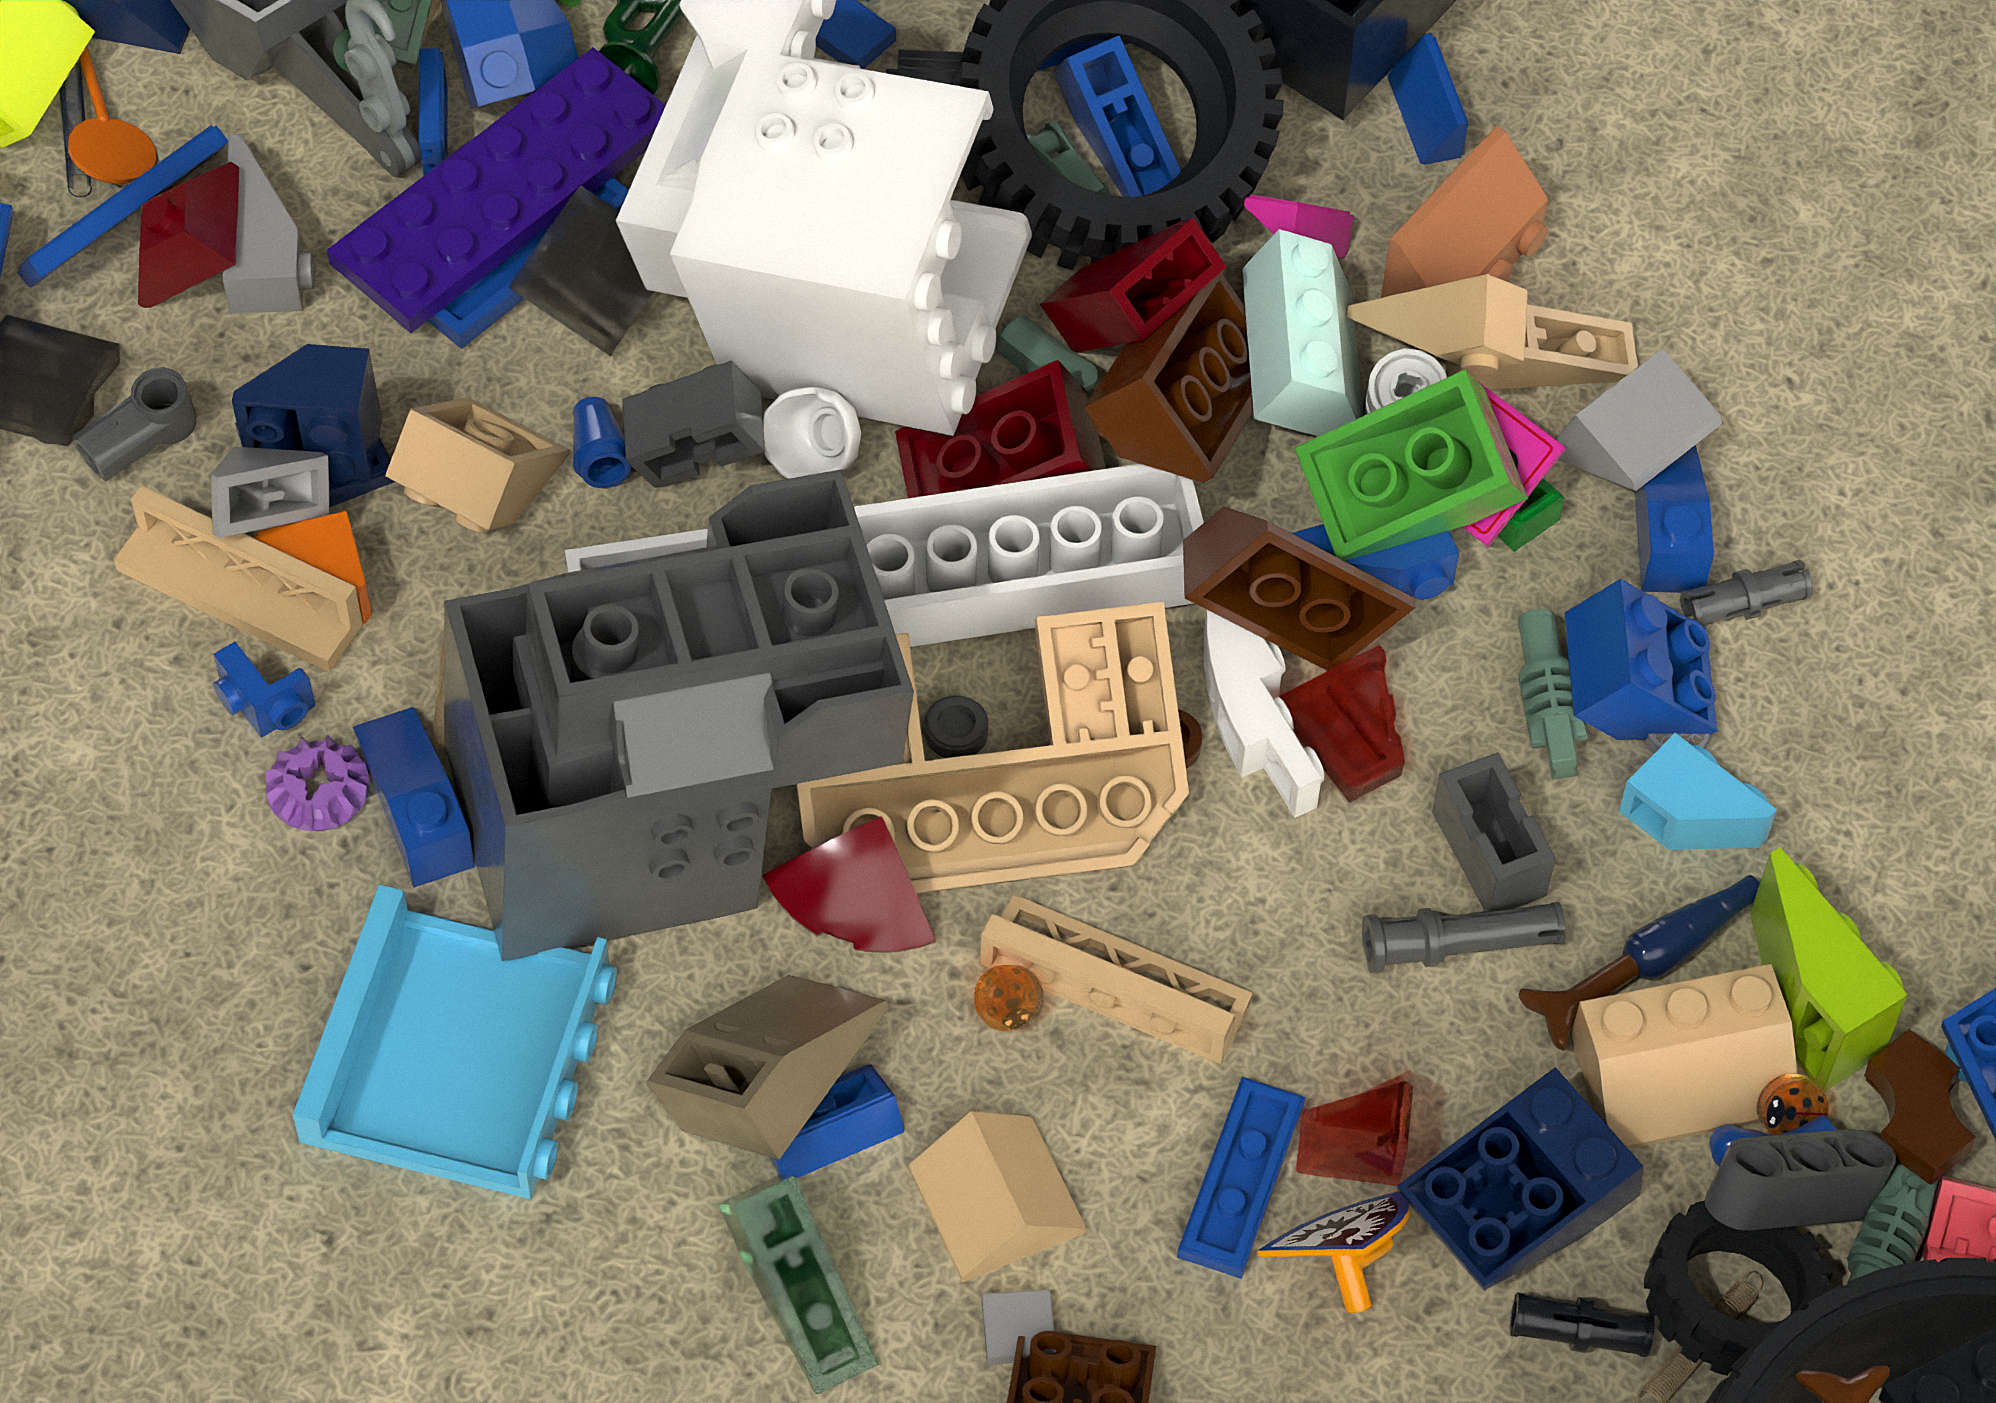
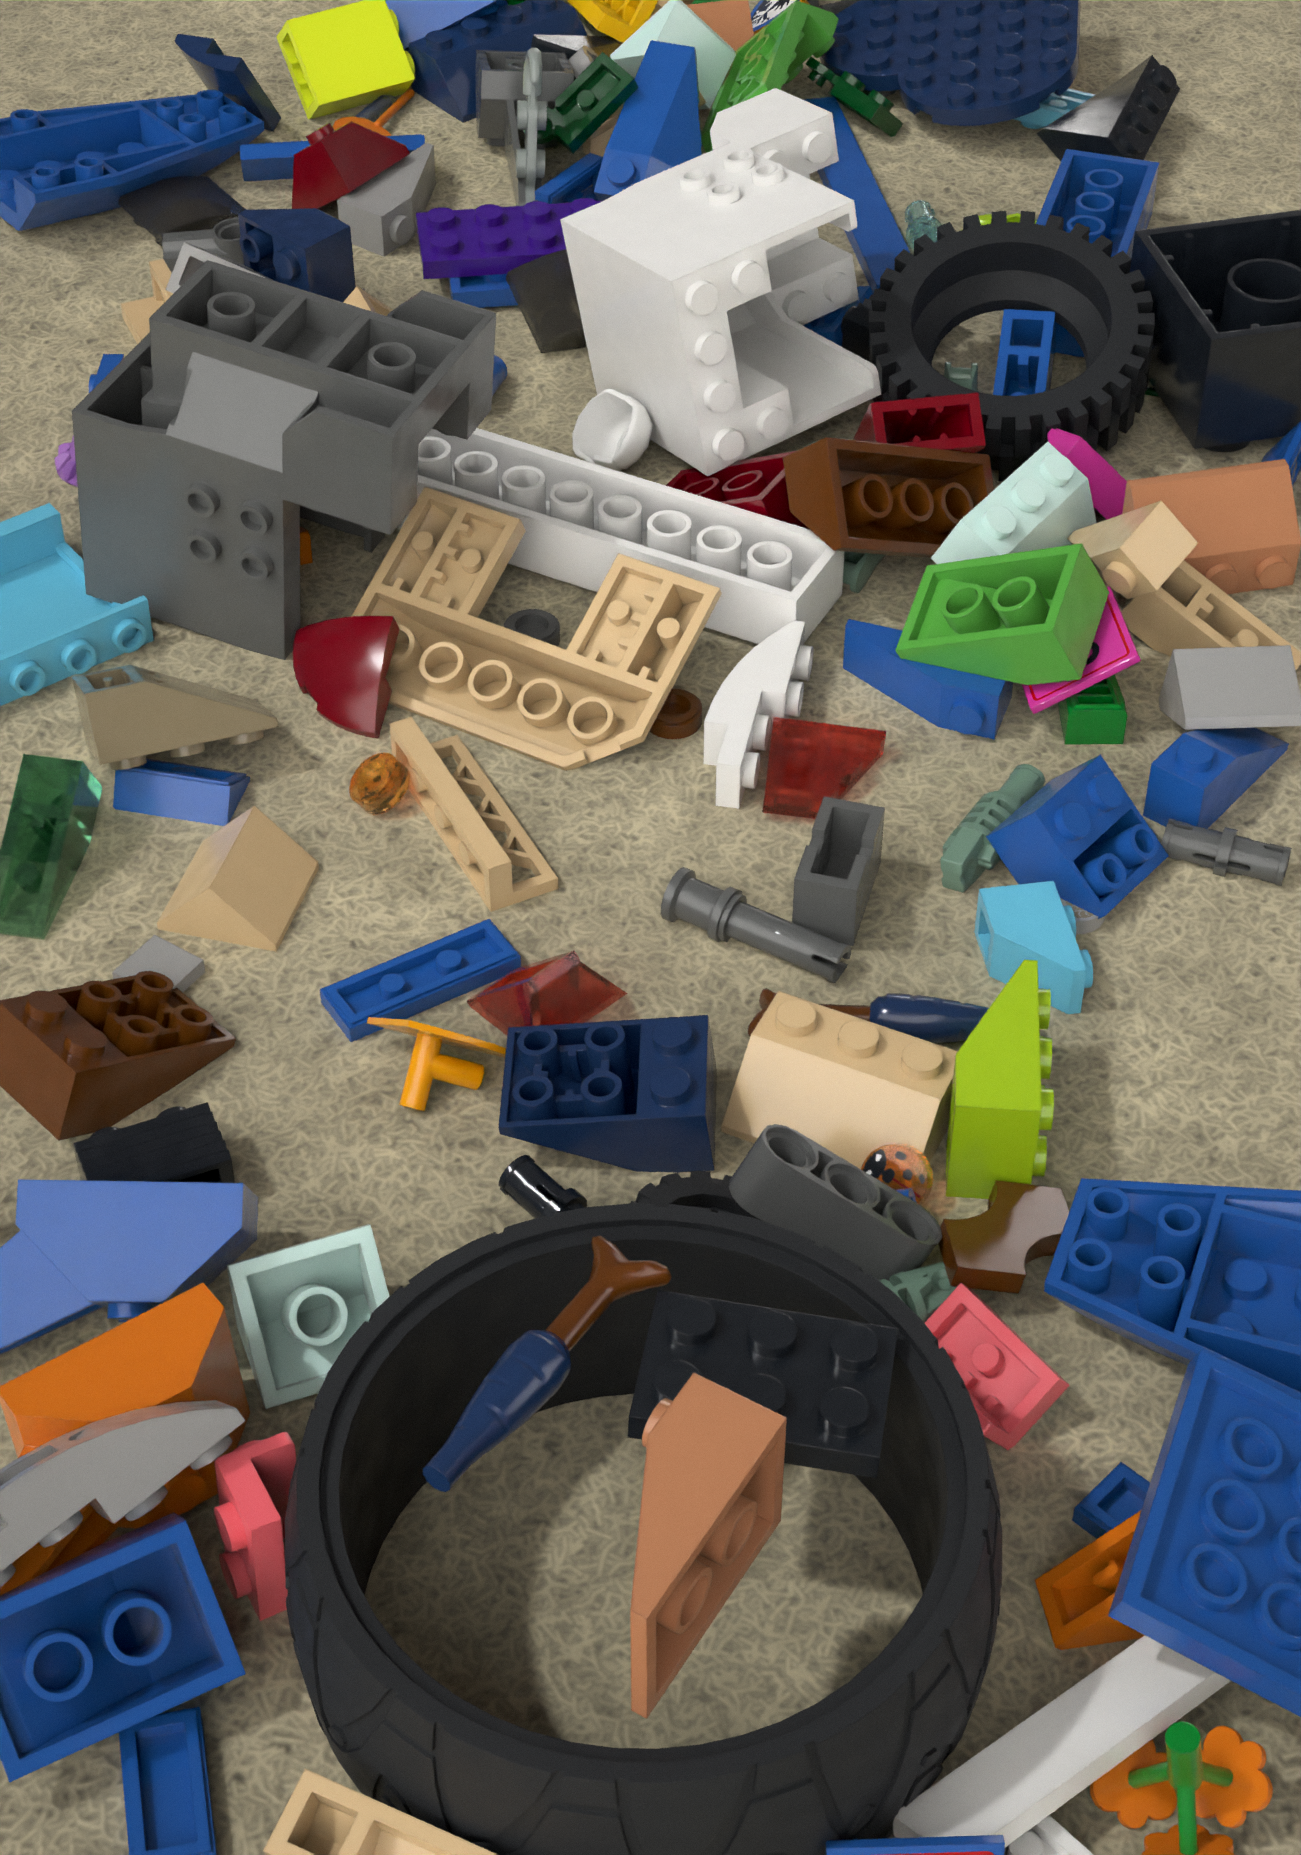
camera: 40 degrees right, 15 degrees down
(693, 422) = (541, 388): dark grey brick -> none
(1287, 589) = (826, 635): reddish brown slope -> none

